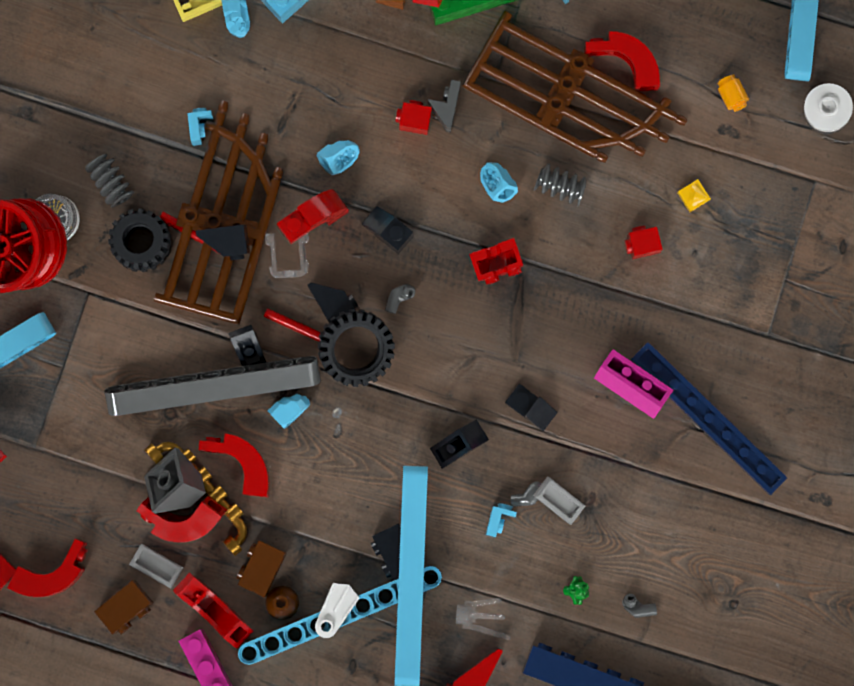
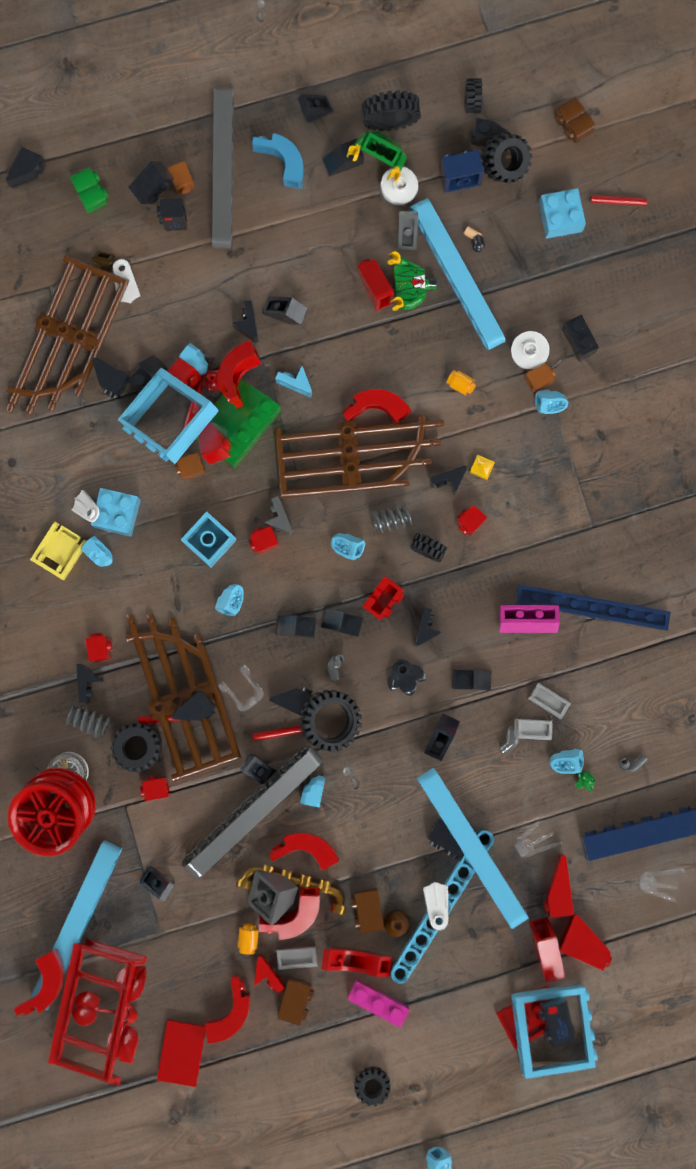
camera: 35 degrees left, 0 degrees up
(67, 393) = (157, 883): none -> black slope
(116, 554) = (265, 970): none -> red slope
(119, 512) = (248, 939): none -> light orange brick
(130, 295) = (155, 788): none -> red brick
(135, 135) = (85, 677): none -> black slope
(171, 113) = (98, 647): none -> red brick
(196, 128) = (123, 646): medium azure bracket -> none
(320, 209) = (241, 651): red arch -> none
(358, 79) = (208, 539): none -> medium azure brick
(437, 257) = (342, 622): none -> black slope
(464, 361) = (405, 680): none -> black plate
(495, 522) = (502, 772): medium azure bracket -> none
(514, 327) = (424, 633): none -> black slope
(572, 558) = (568, 761): none -> medium azure rock
(579, 239) = (428, 547): none -> black tyre
(596, 483) = (549, 701): none -> light grey tile
(657, 184) = (453, 476): none -> black slope
(812, 175) = (550, 401): none -> medium azure rock
(819, 143) = (540, 378): none -> dark orange brick

